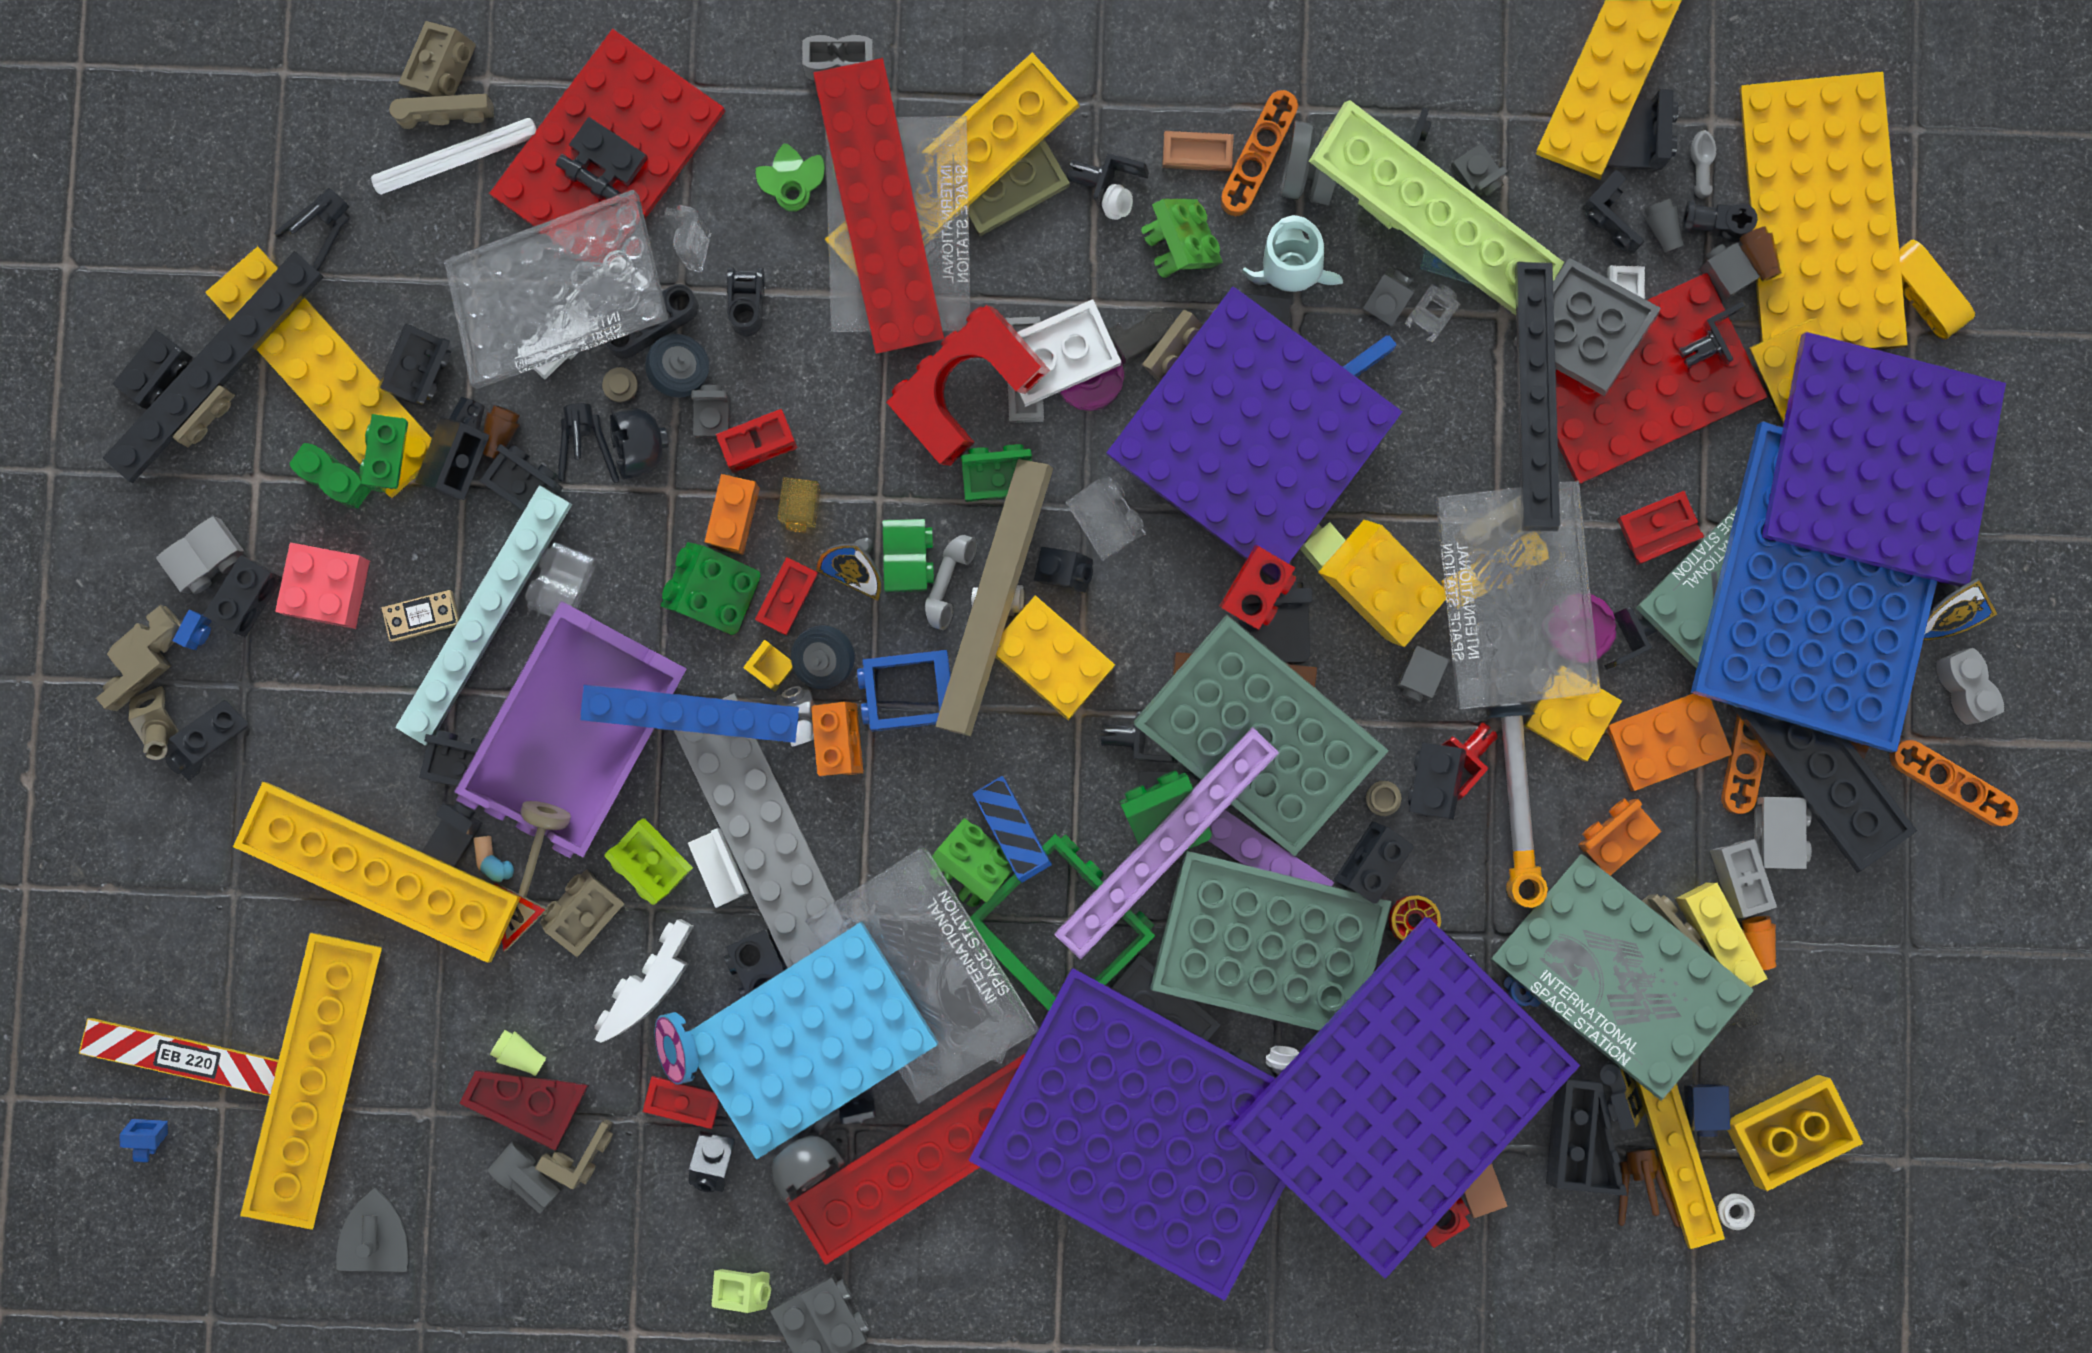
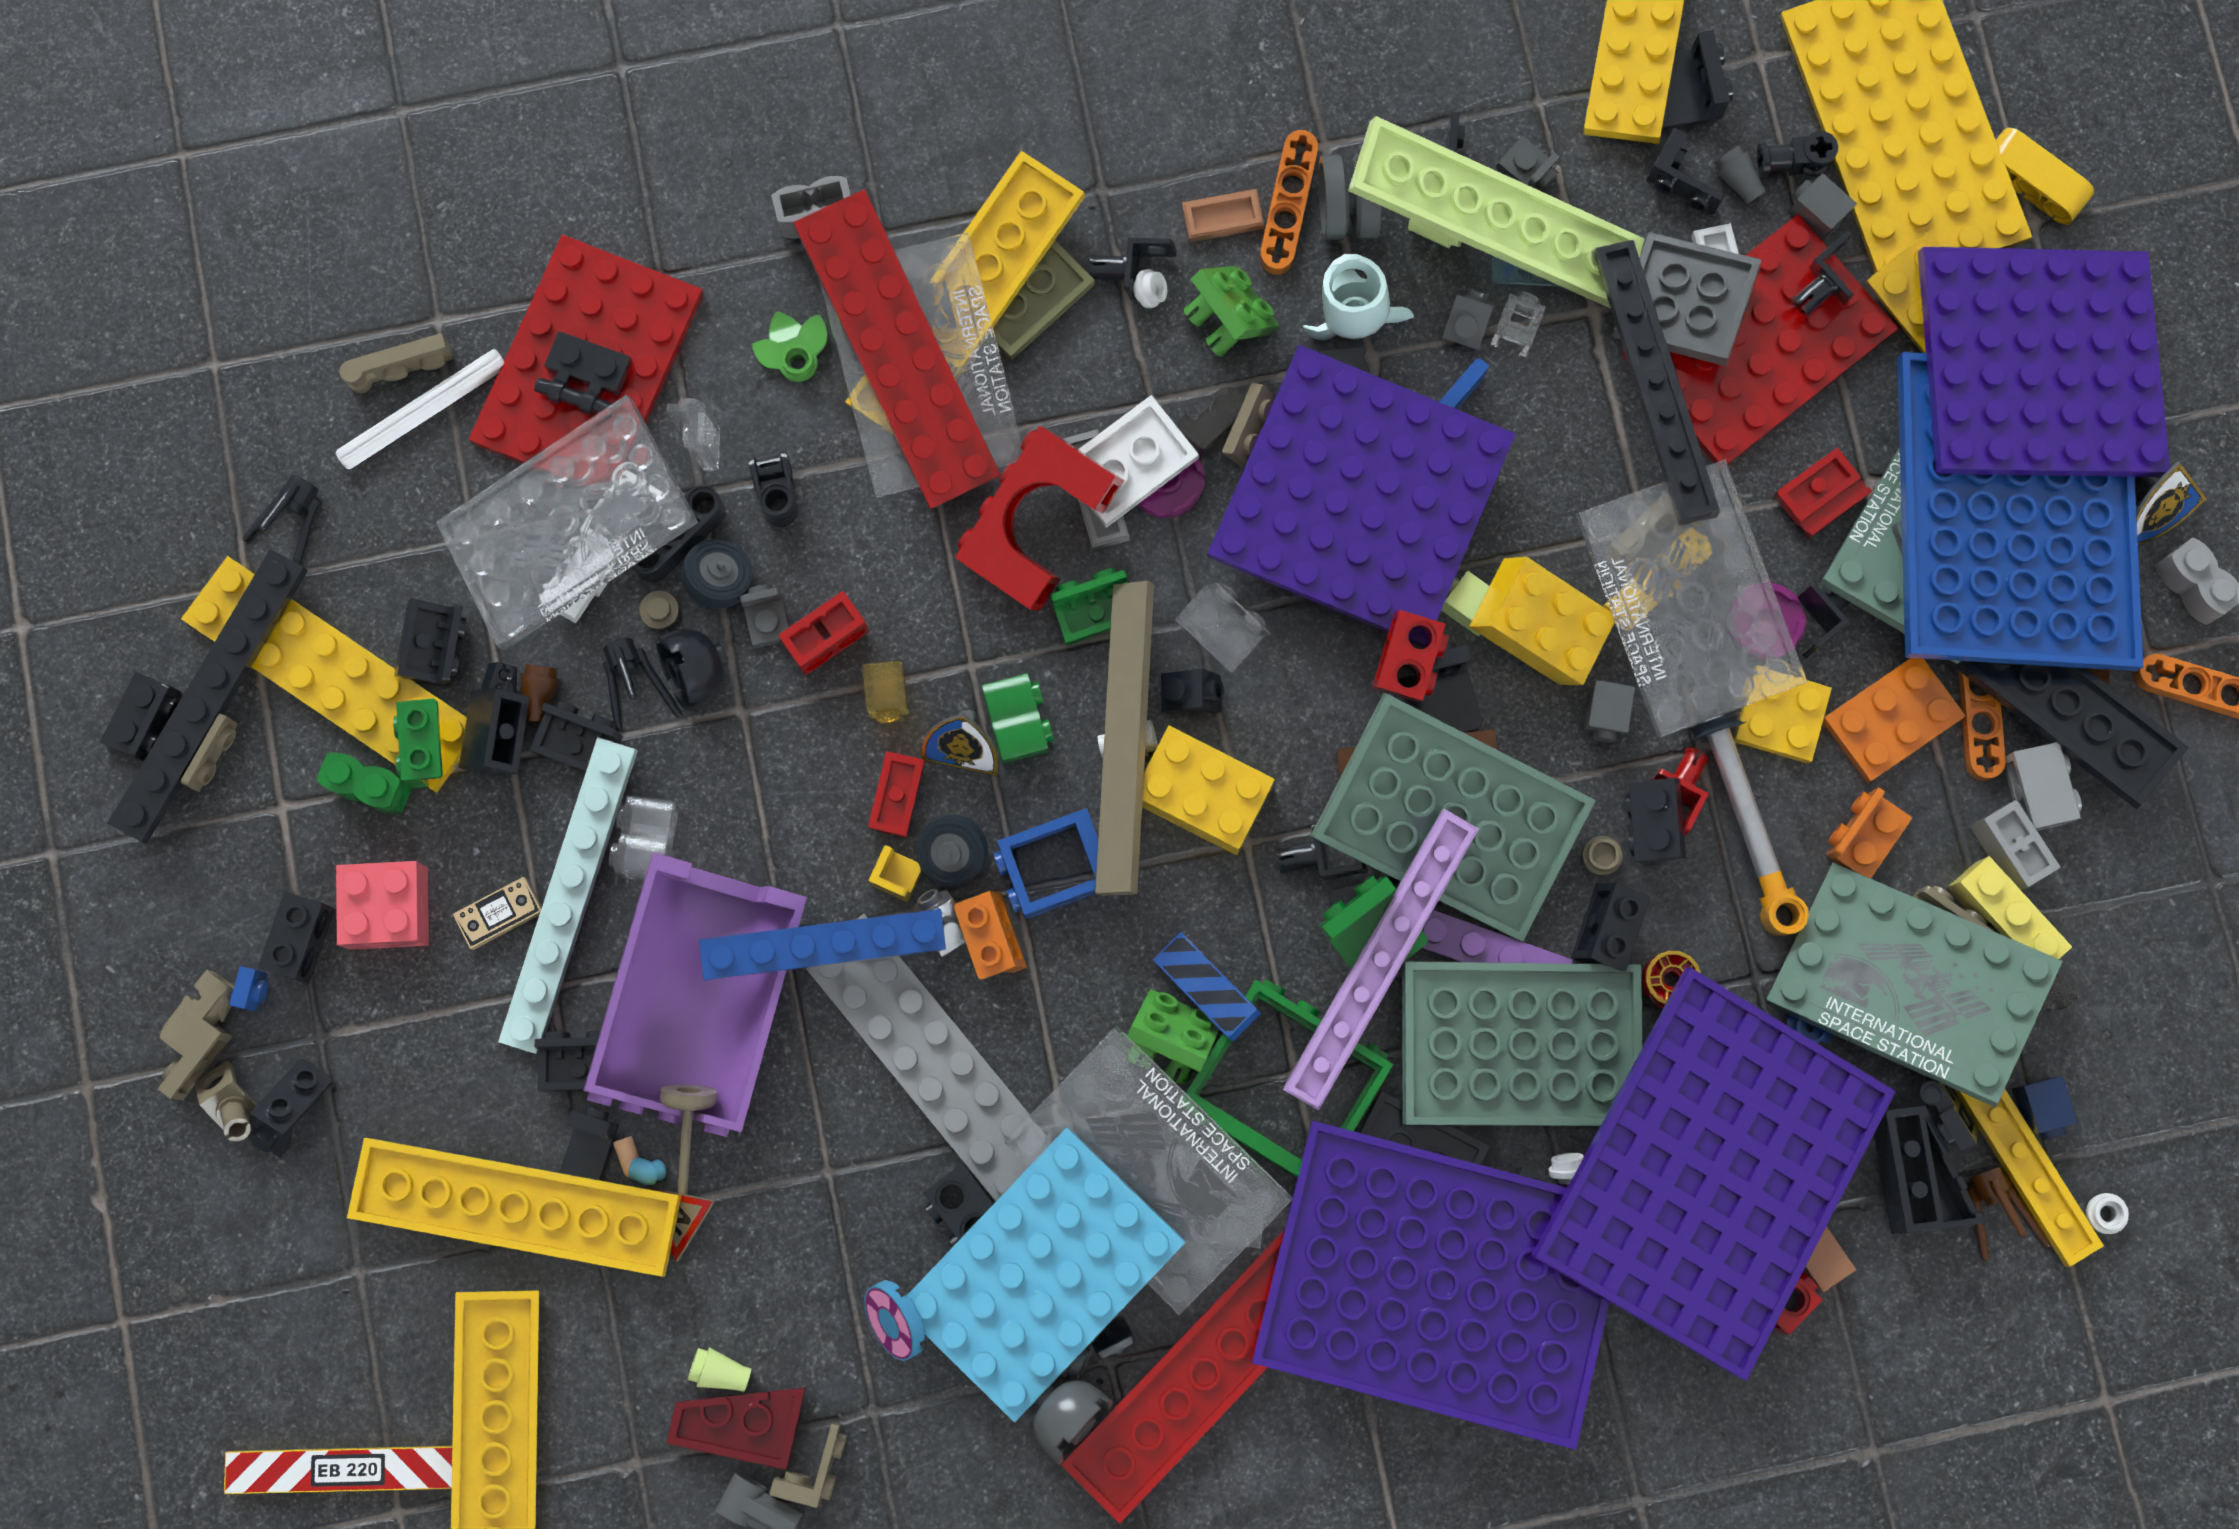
camera: 10 degrees left, 5 degrees down
(200, 556) = (239, 906): light grey brick -> none
(437, 61) = (379, 312): dark tan bracket -> none
(580, 912) = (751, 1196): dark tan bracket -> none
(639, 997) = (840, 1274): white slope -> none
(648, 862) = (814, 1121): lime bracket -> none
(681, 1102) = (914, 1380): red plate -> none
(710, 588) = (810, 805): green bracket -> none
(710, 1162) = (963, 1440): bracket -> none
(718, 868) = (892, 1110): white panel -> none
(732, 514) = (815, 719): orange brick -> none
(960, 550) = (1073, 698): light grey bar -> none
(1703, 154) = (1760, 93): light grey piece -> none
(1761, 252) = (1852, 177): reddish brown cone -> none
(1762, 939) = (2054, 906): orange cone -> none
(1793, 1132) = (2146, 1109): yellow brick -> none

